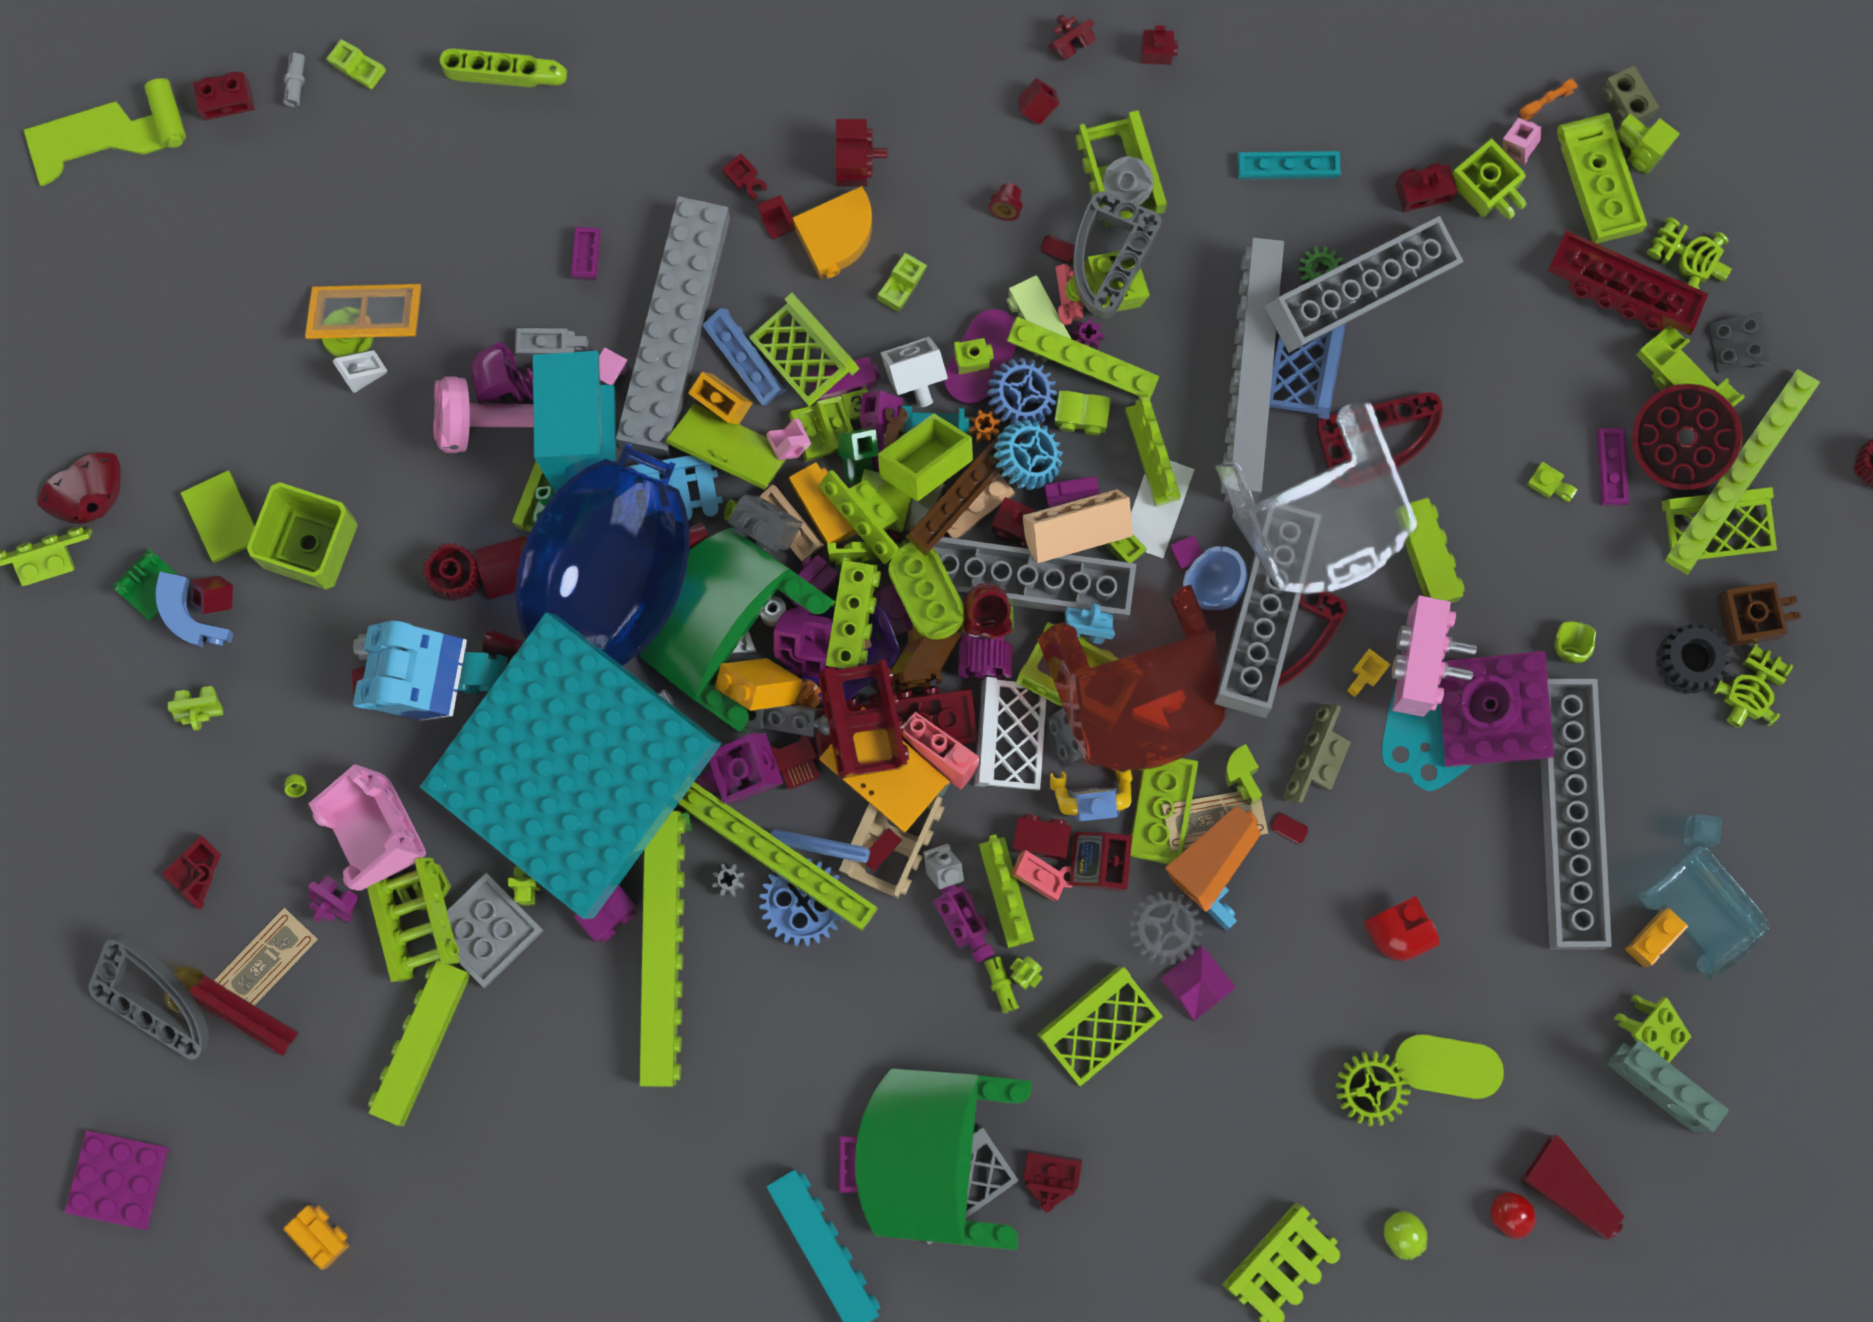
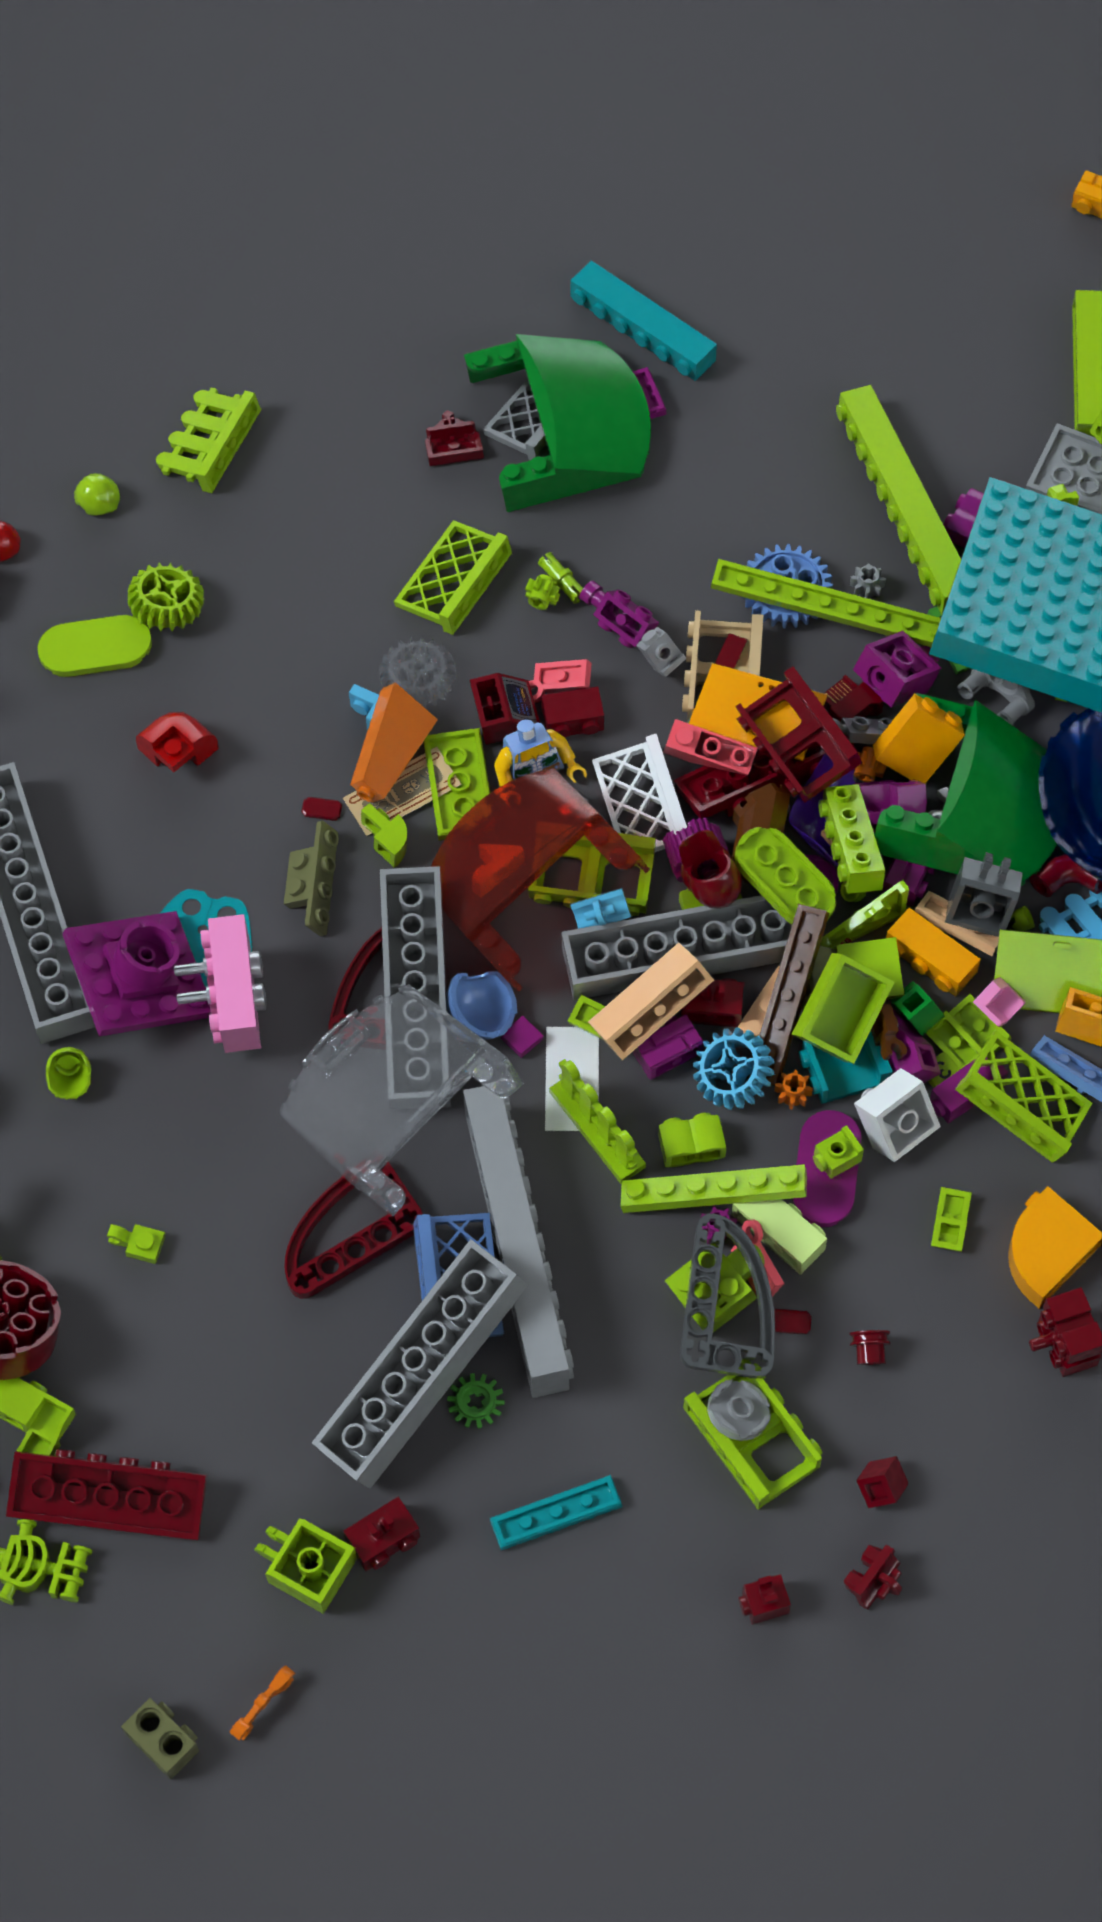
camera: 165 degrees right, 15 degrees down
(822, 846) = (792, 631): medium blue axle -> none
(865, 512) = (881, 942): lime bracket -> none
(1006, 892) = (578, 642): lime fence -> none
(1012, 390) = (742, 1134): medium blue gear -> none
(1198, 983) = (366, 637): magenta slope -> none
(1369, 671) = (286, 978): yellow plate -> none
(1430, 556) = (256, 1112): lime brick -> none
(1521, 140) = (291, 1627): bright pink brick -> none
(1603, 192) = (164, 1604): lime hinge -> none
(1612, 467) = (72, 1285): magenta tile -> none
(1645, 142) = (120, 1673): lime brick -> none

